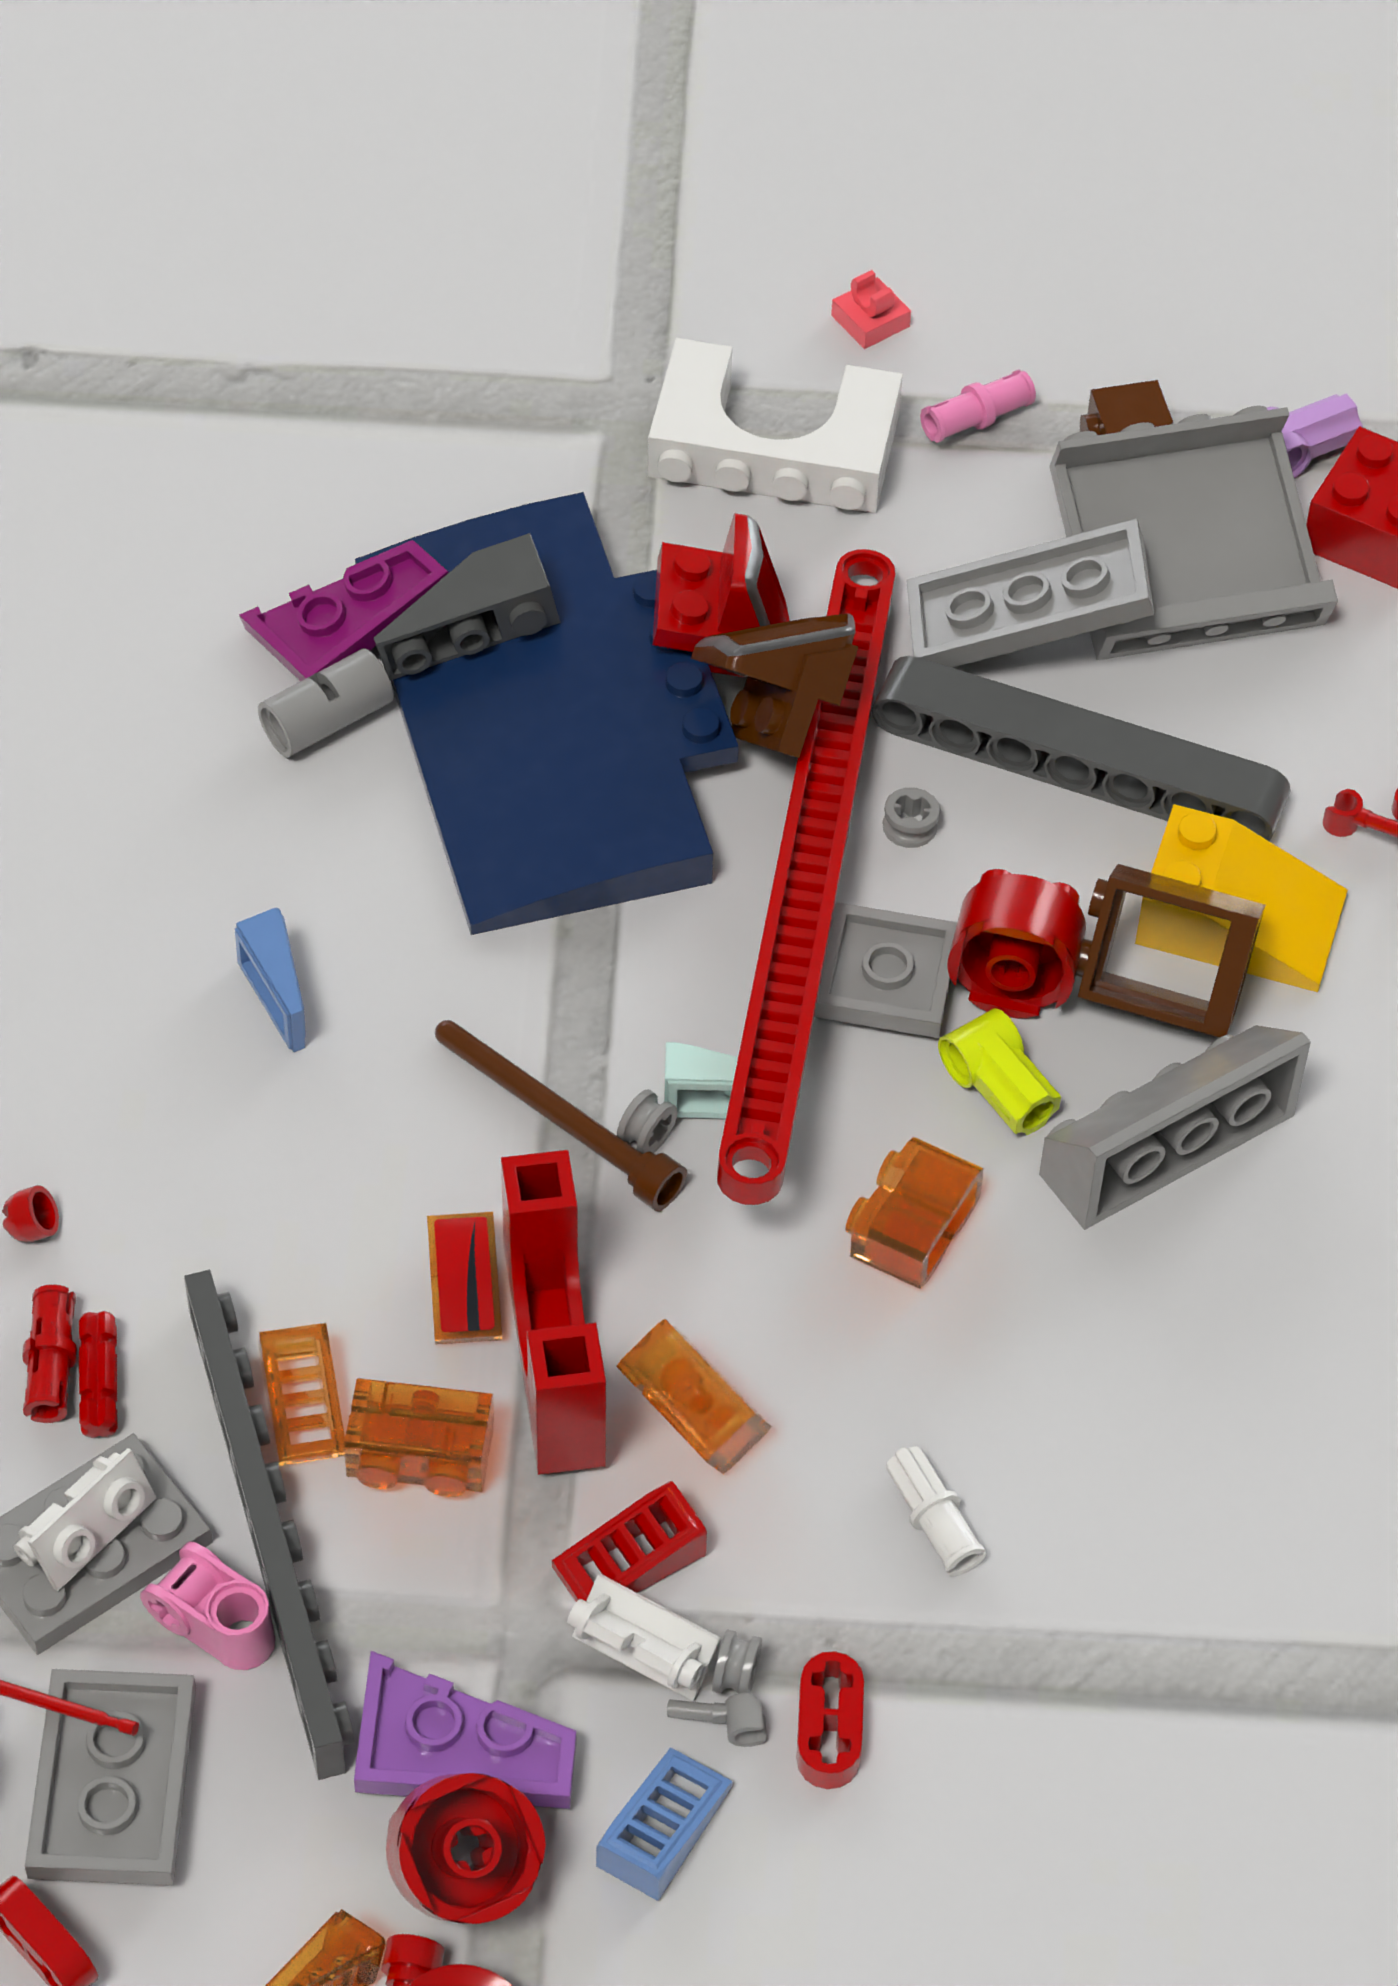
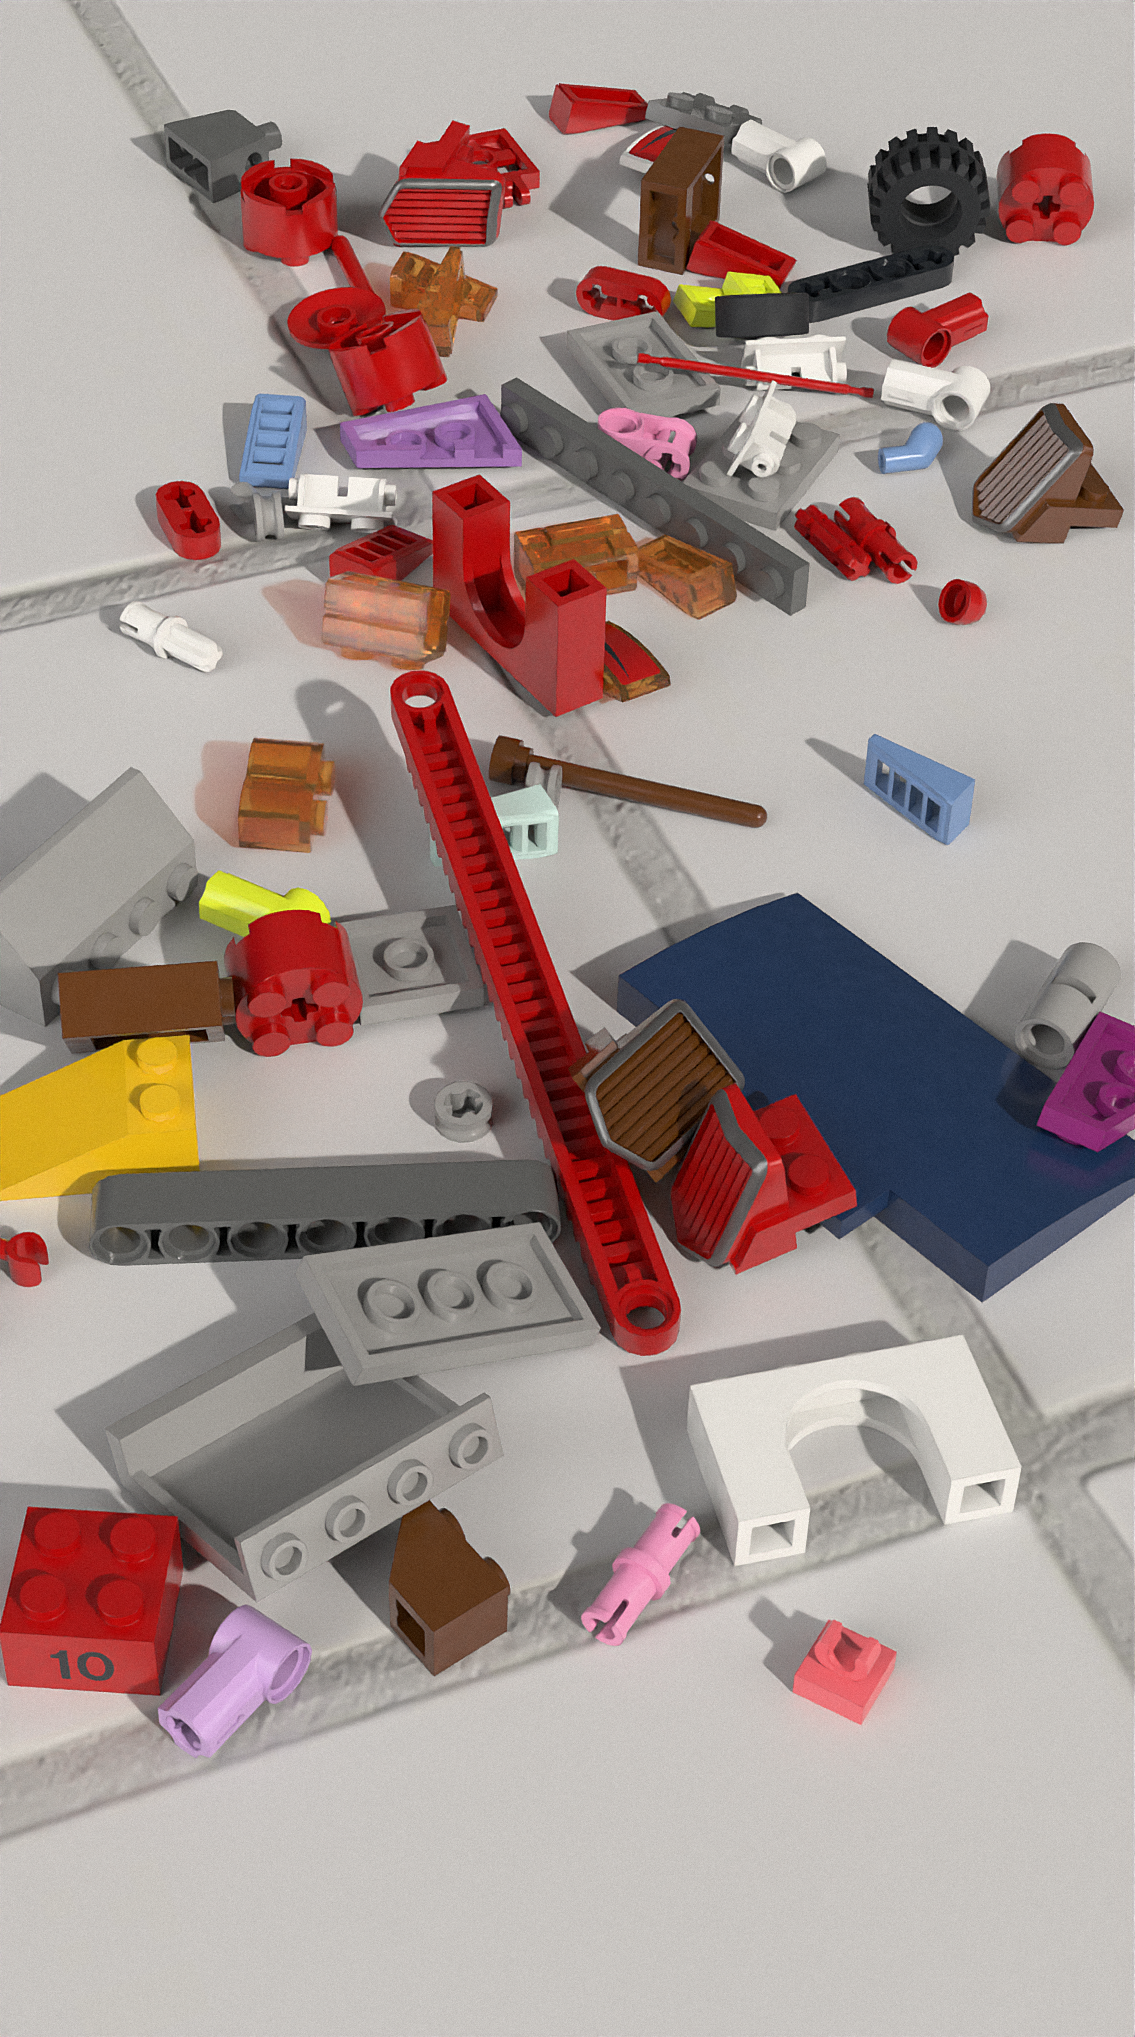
camera: 155 degrees right, 10 degrees down
(475, 606) = (978, 1095): dark grey slope -> none

